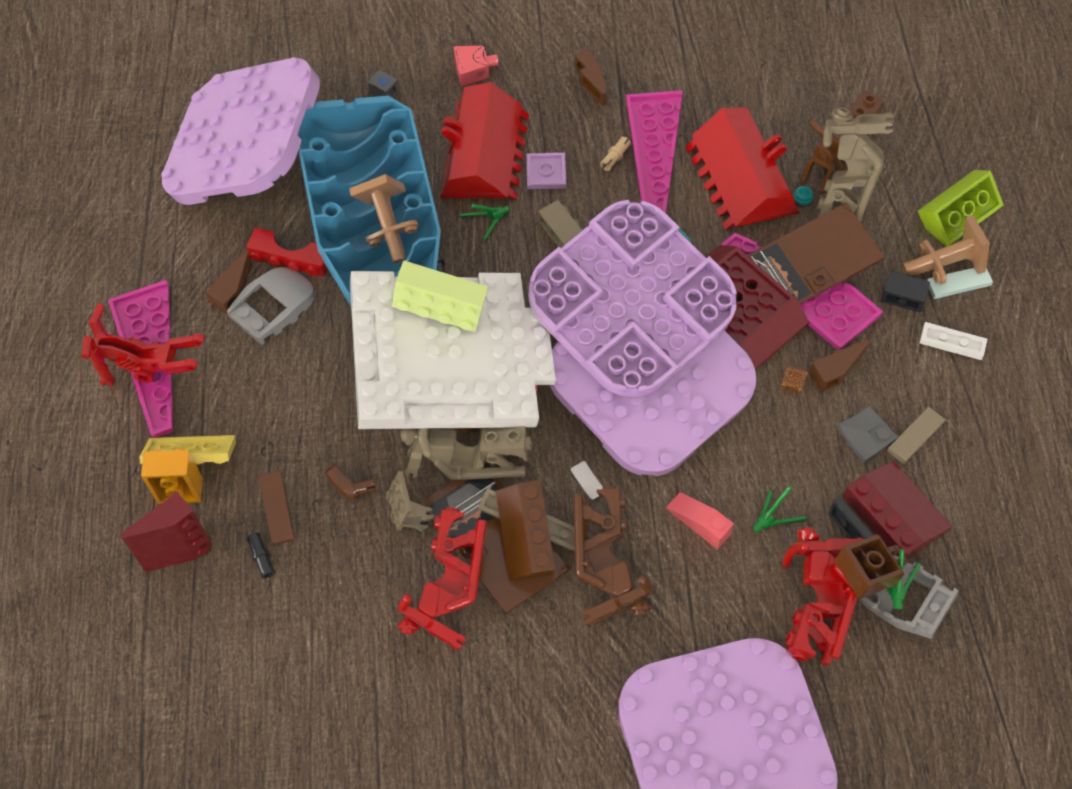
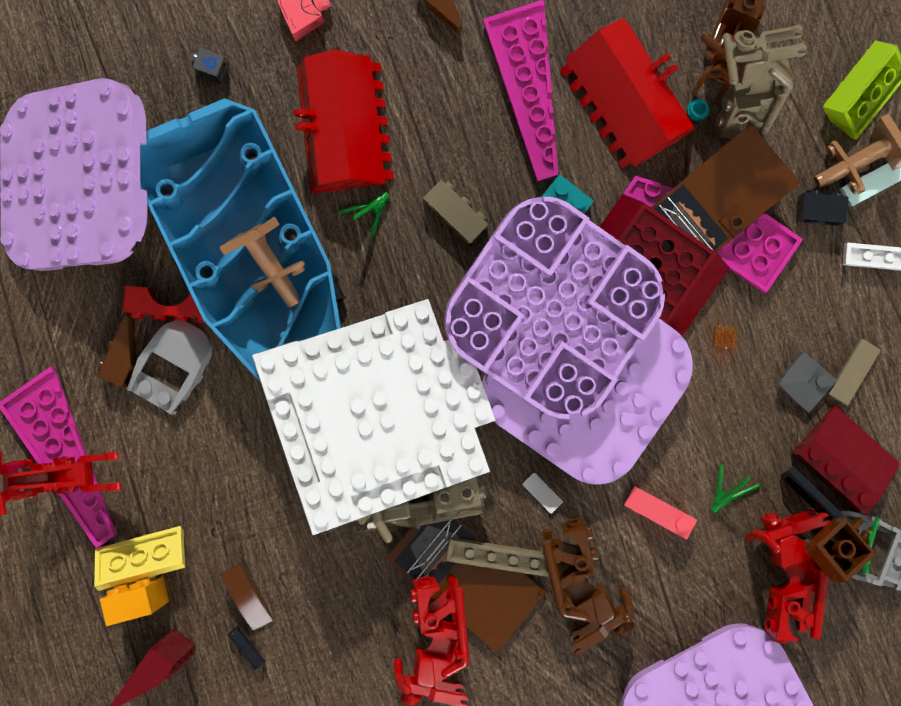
camera: 20 degrees left, 25 degrees up
(347, 487) = (308, 557): reddish brown arm -> none
(406, 512) = (370, 576): dark tan plate -> none
(439, 296) = (357, 372): yellowish green brick -> none
(525, 530) = (498, 575): reddish brown slope -> none
(546, 171) = (417, 135): lavender tile -> none
(615, 153) = (487, 99): tan pin -> none
(834, 368) = (766, 315): reddish brown slope -> none

